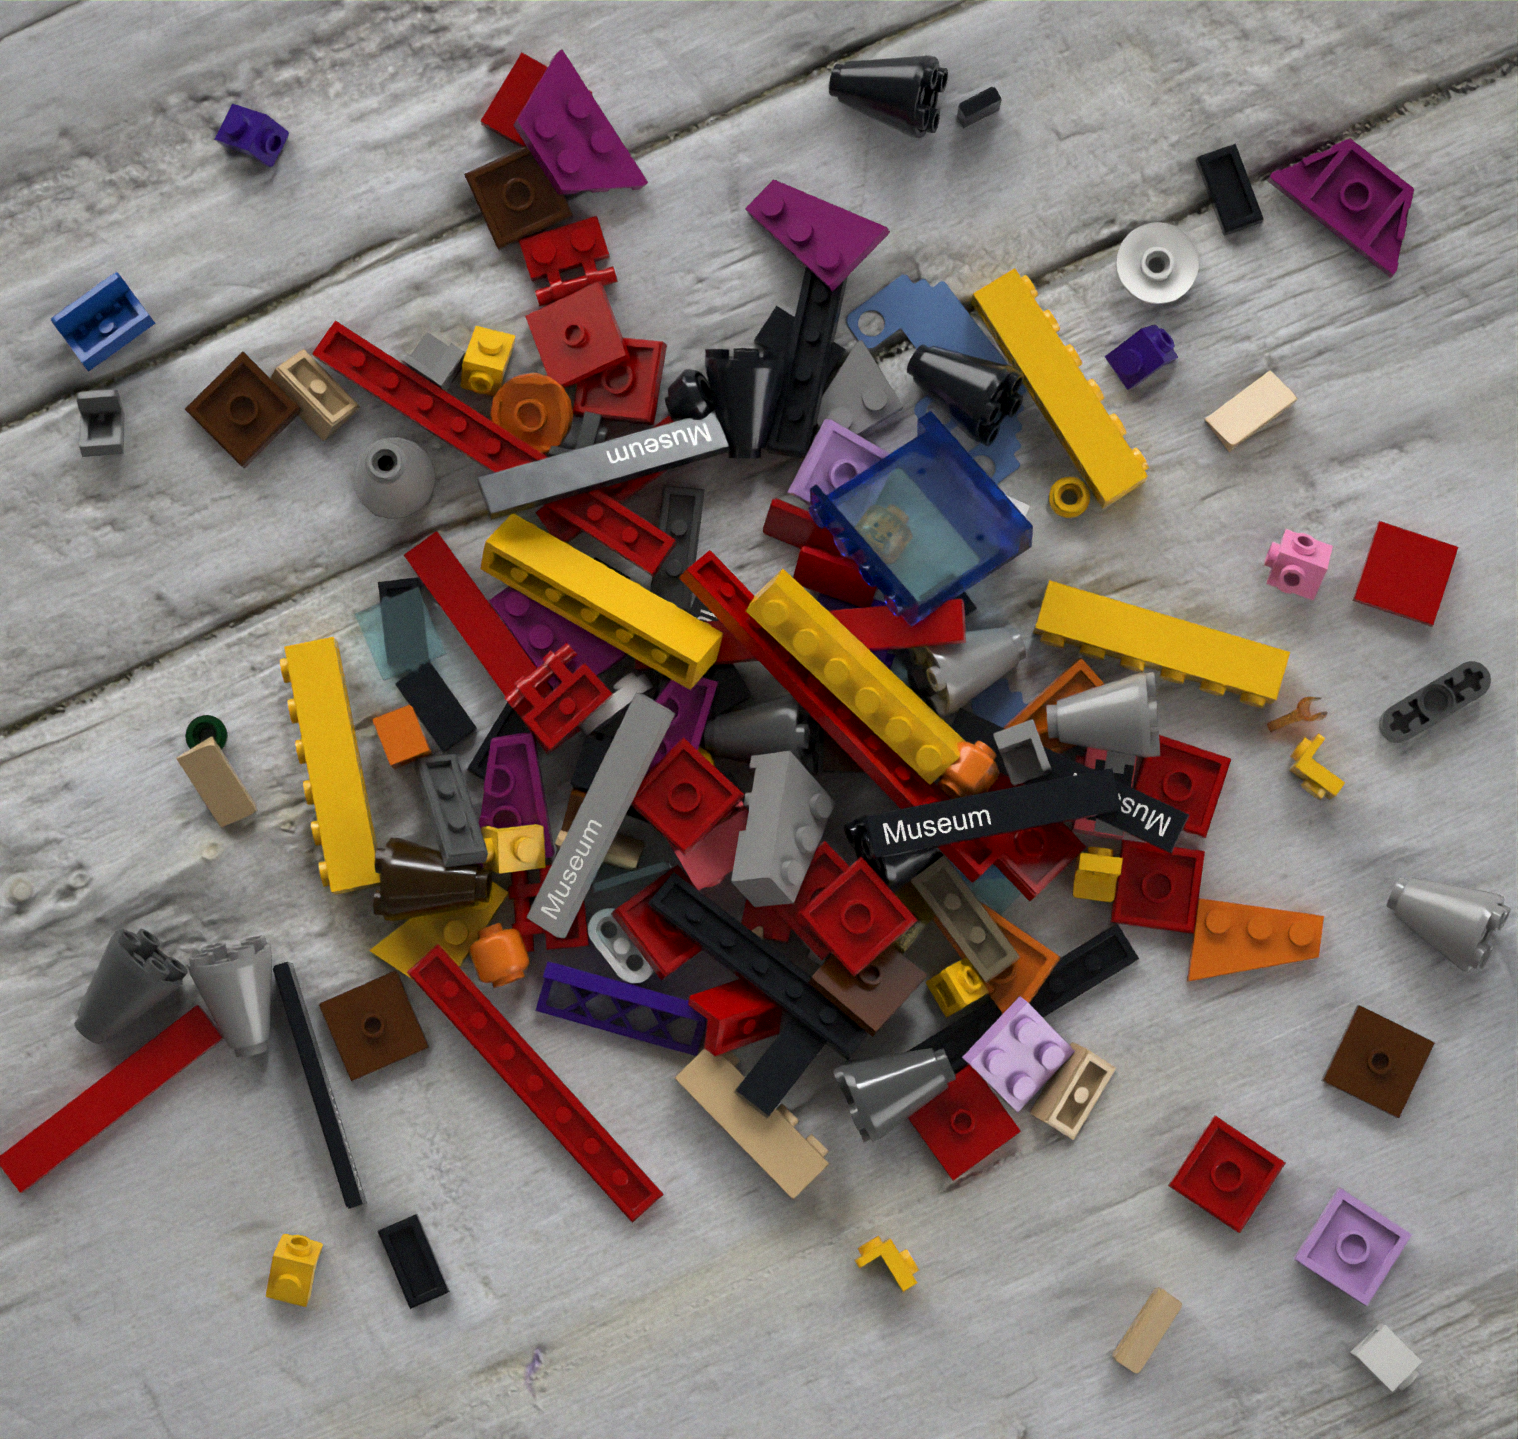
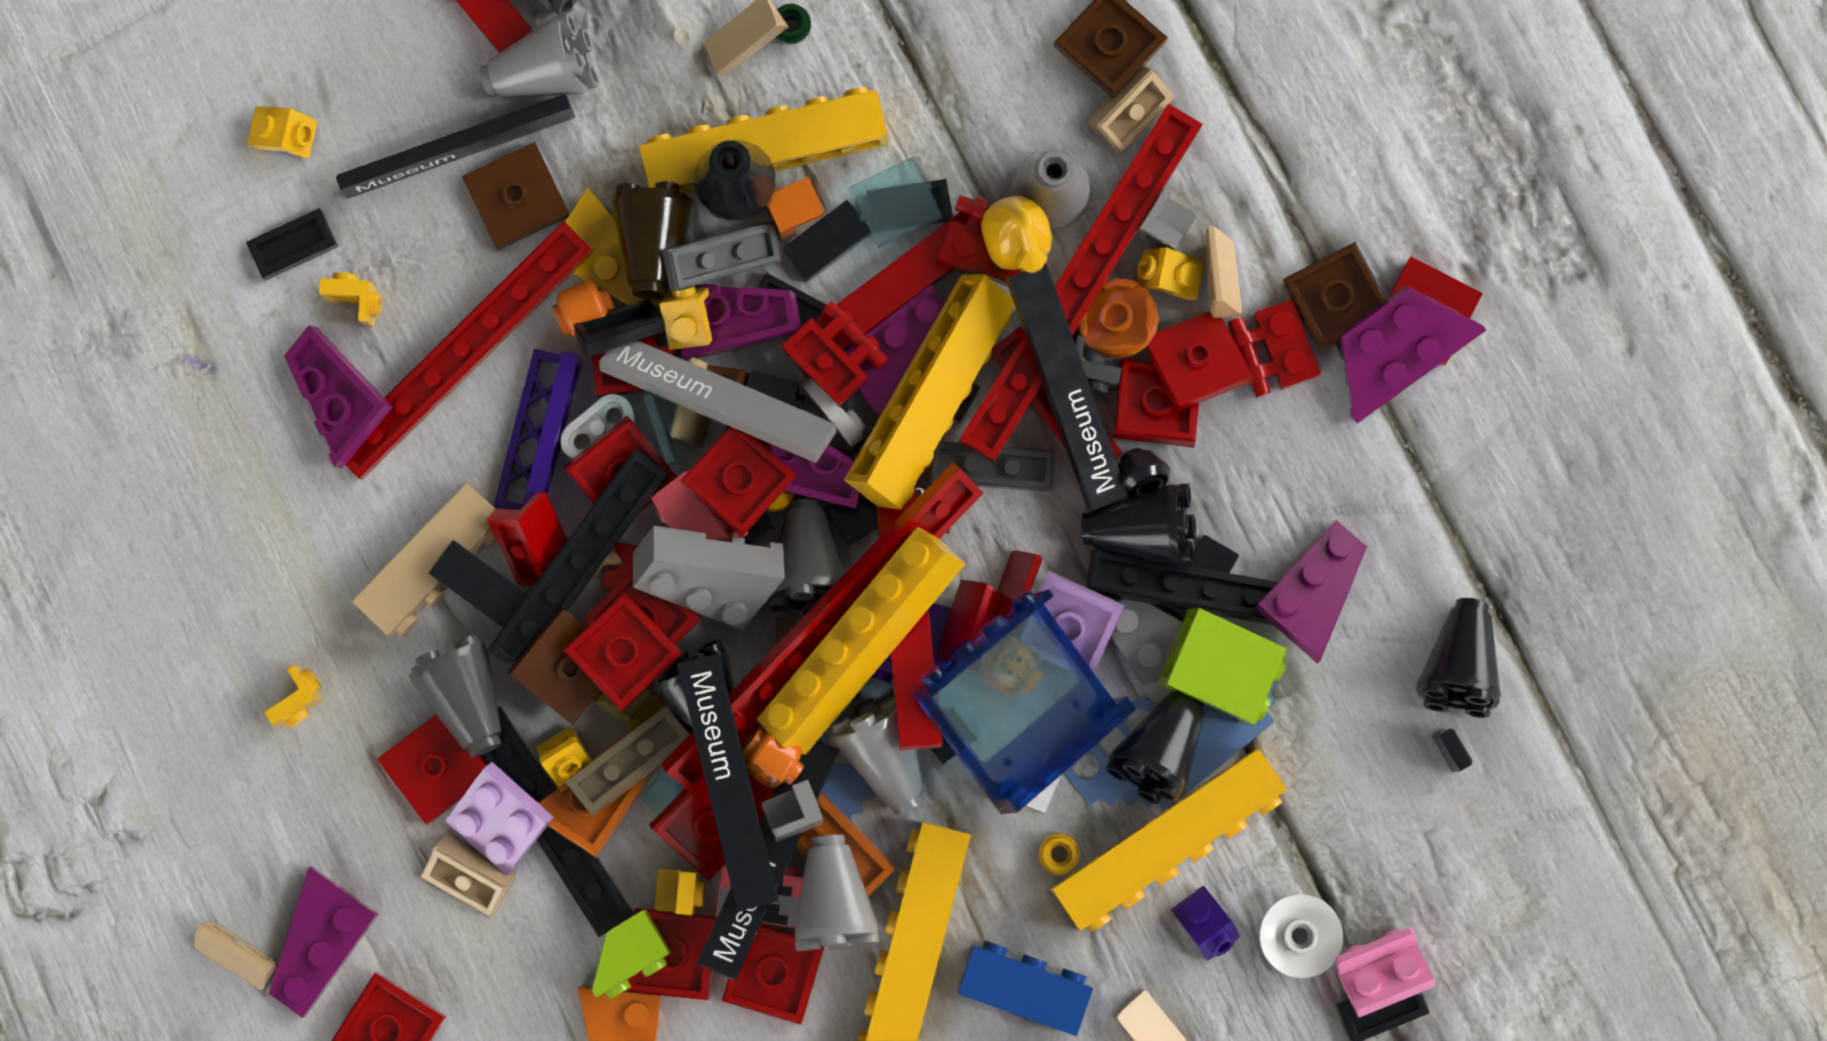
camera: 85 degrees right, 0 degrees up
(252, 134) = (1384, 37): dark purple bracket -> none
(386, 804) = (735, 191): none -> black cone
(446, 506) = (1017, 234): none -> yellow piece
(458, 547) = (965, 245): none -> red plate
(464, 1202) = (346, 288): none -> yellow bracket
(491, 309) = (1221, 274): none -> tan slope
(521, 917) = (619, 327): none -> black tile
(578, 1210) = (339, 395): none -> magenta wing
(889, 325) = (1223, 666): none -> lime panel
(1135, 1243) = (319, 941): none -> magenta wing
(1155, 925) = (626, 951): none -> lime slope
(1194, 185) = (1383, 971): none -> bright pink bracket
(1201, 534) = (1025, 987): none -> blue brick

